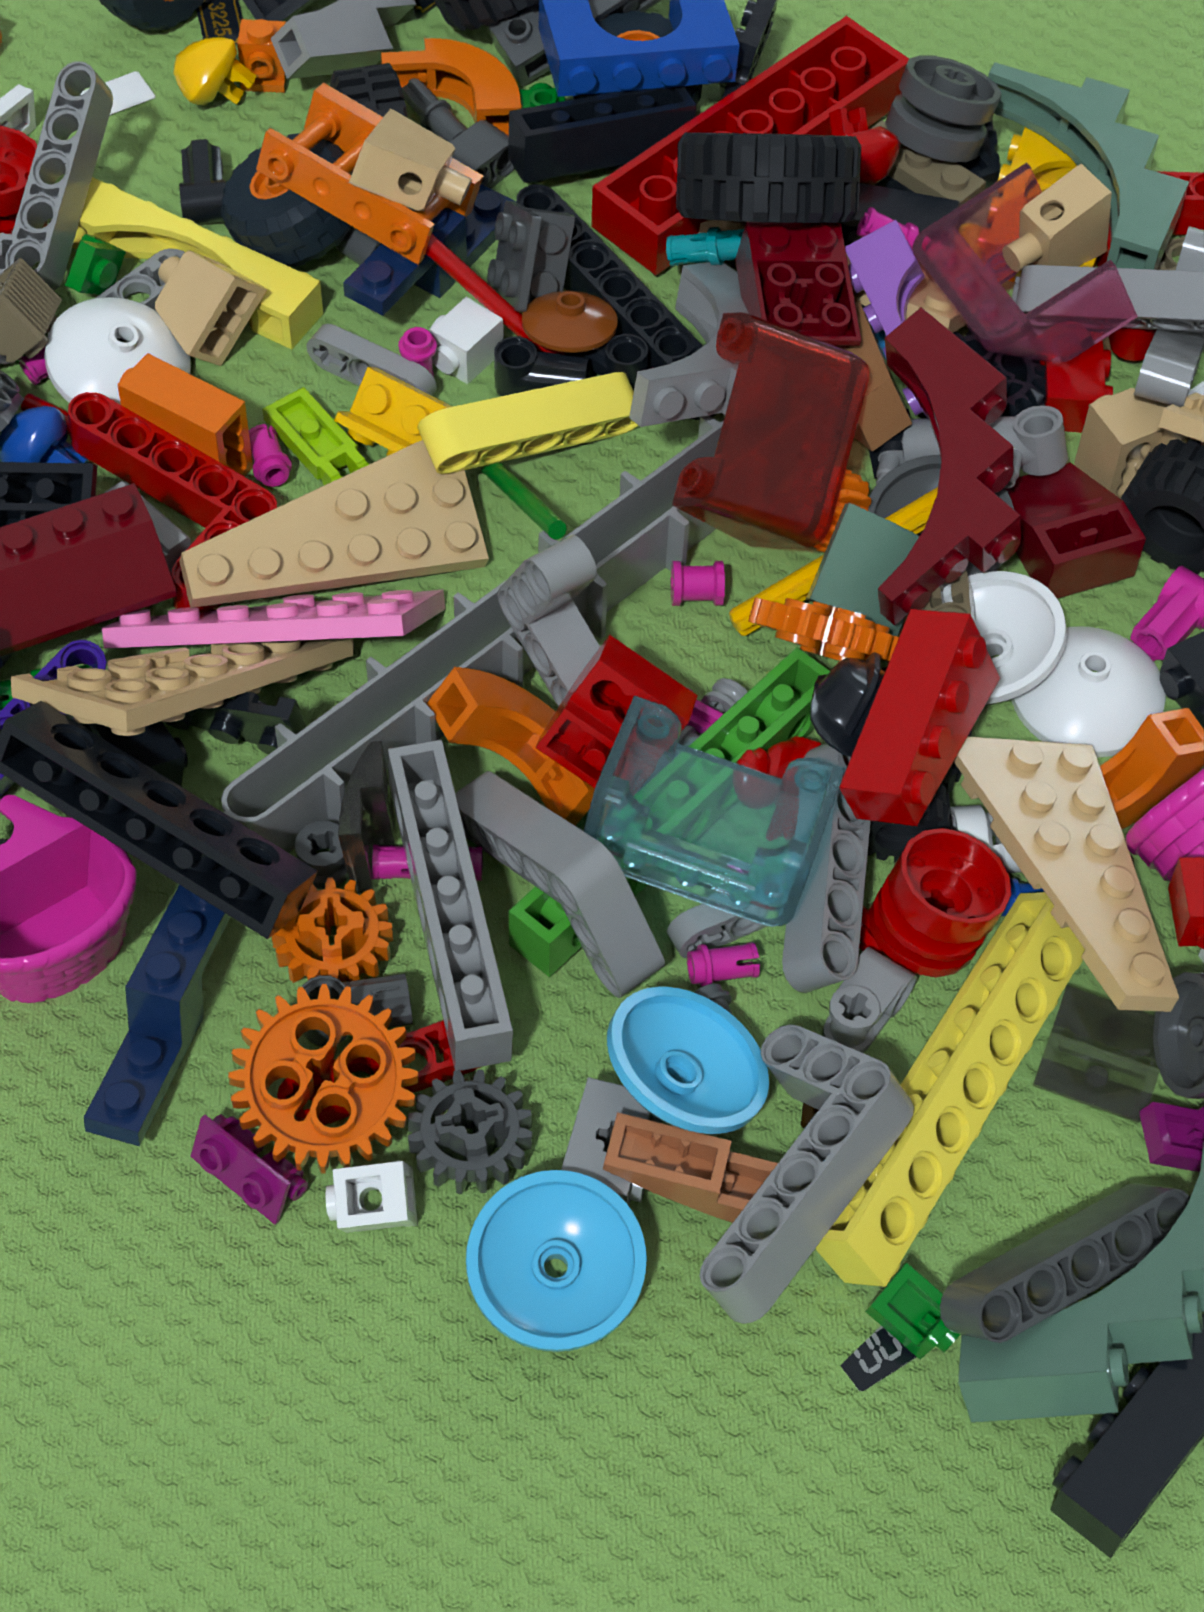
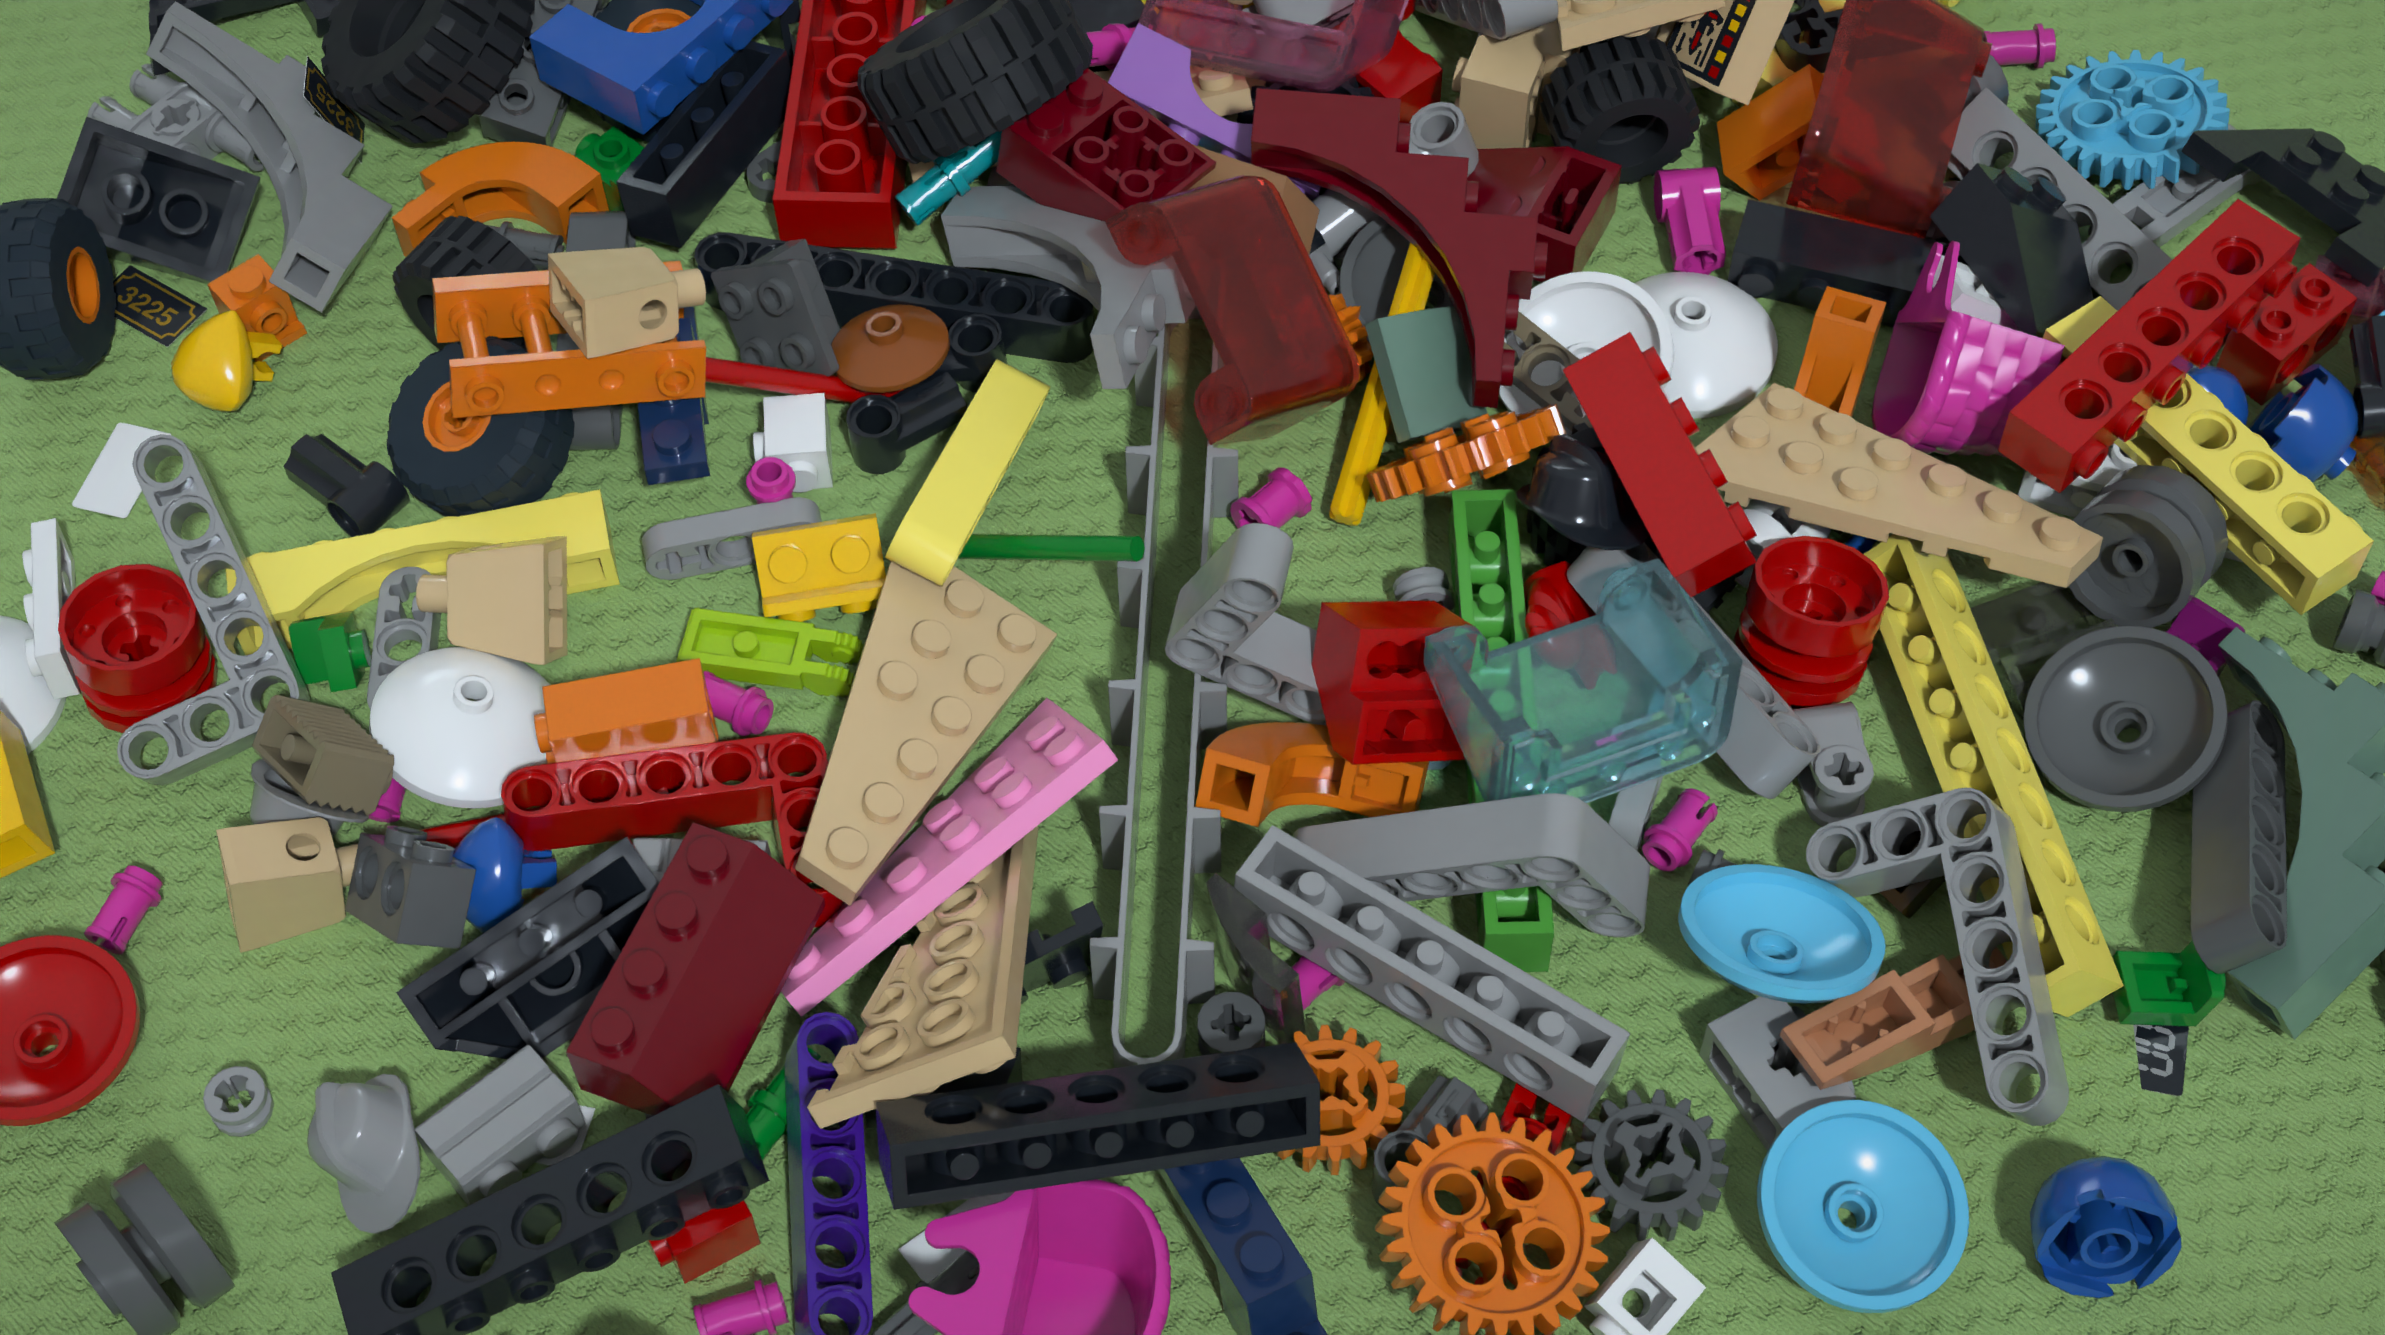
camera: 40 degrees left, 0 degrees up
(693, 1407) = (2102, 1227): none -> blue cylinder
(1079, 1107) = (2118, 683): none -> dark grey dish

